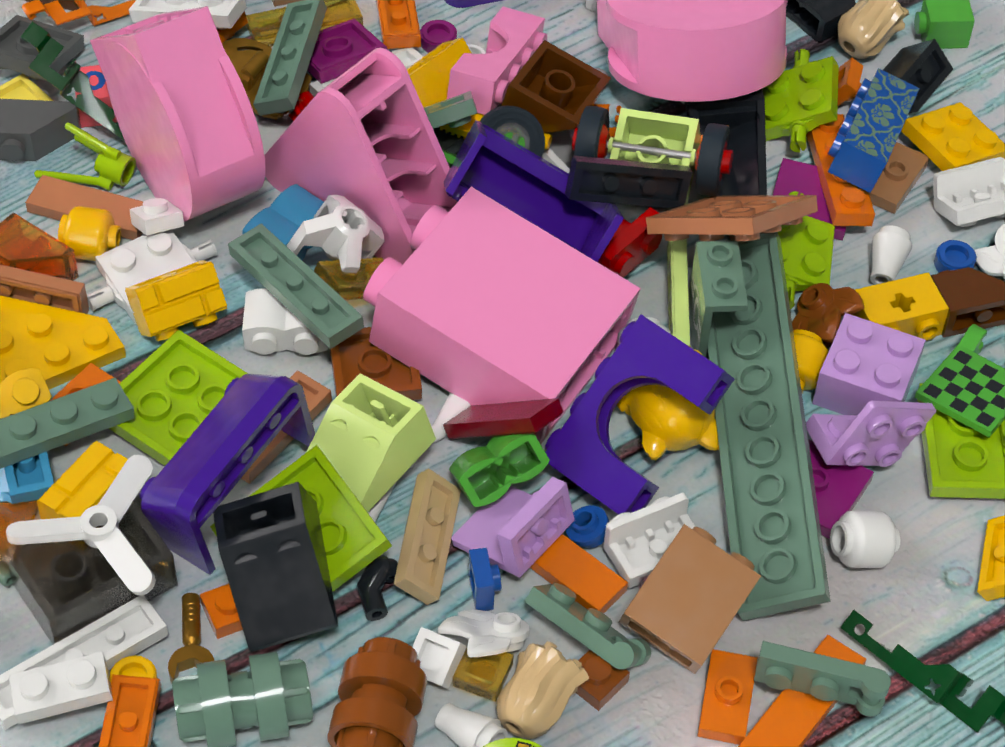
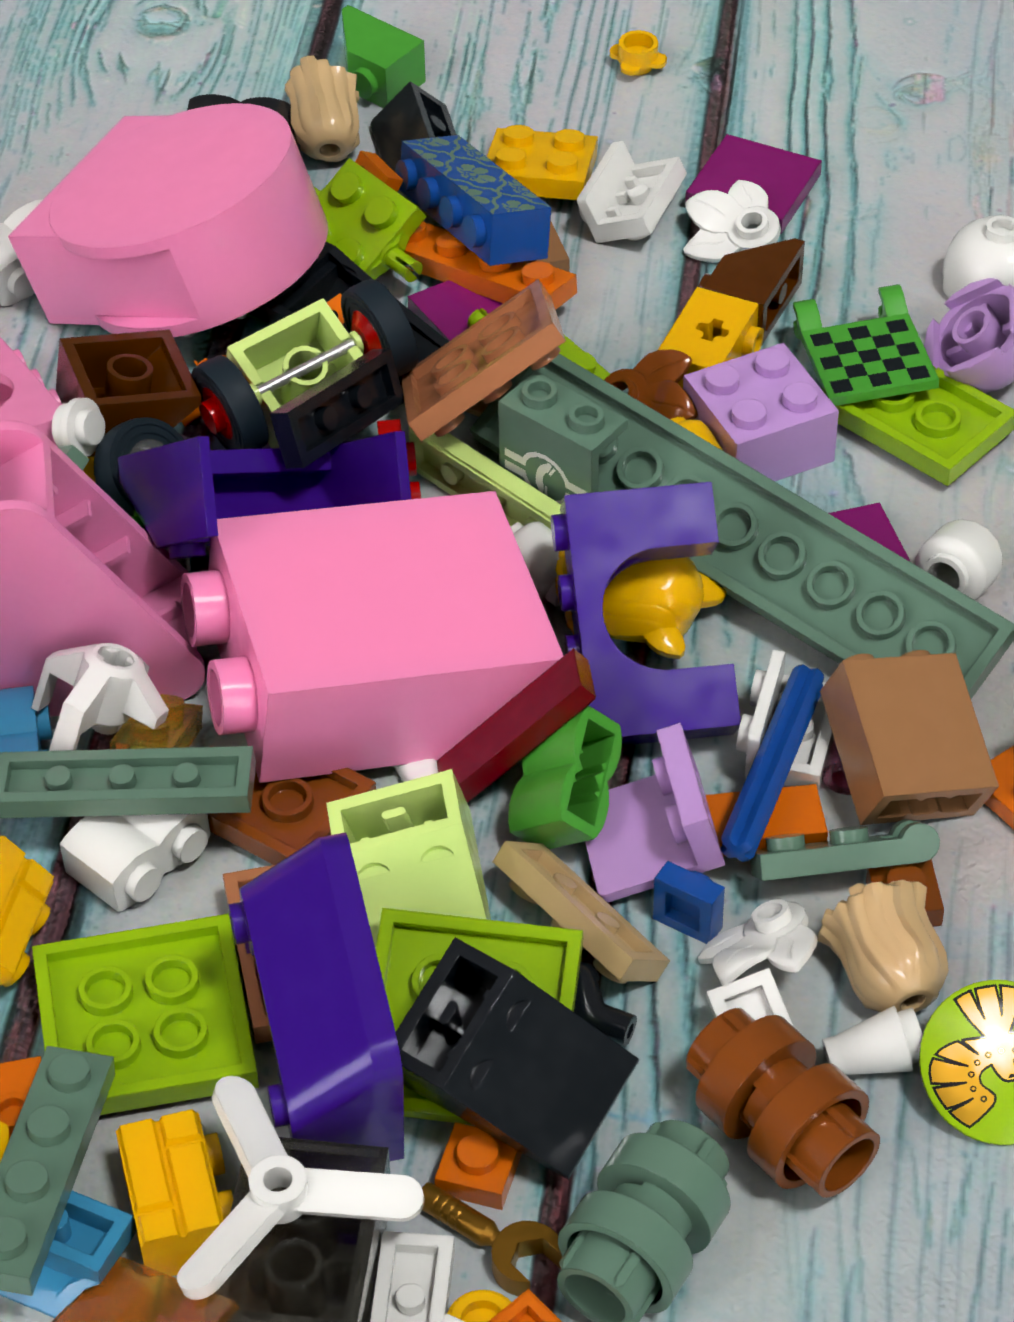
camera: 45 degrees left, 5 degrees down
(483, 674) = (815, 988): clear yellow plate -> none
(491, 92) = (78, 425): none -> white plate
(588, 527) = (728, 767): blue plate -> none
(605, 549) = (772, 764): none -> blue axle
(871, 437) = (845, 482): lavender bracket -> none
(889, 253) = (624, 304): white cone -> none
(954, 256) = (680, 269): blue tile -> none

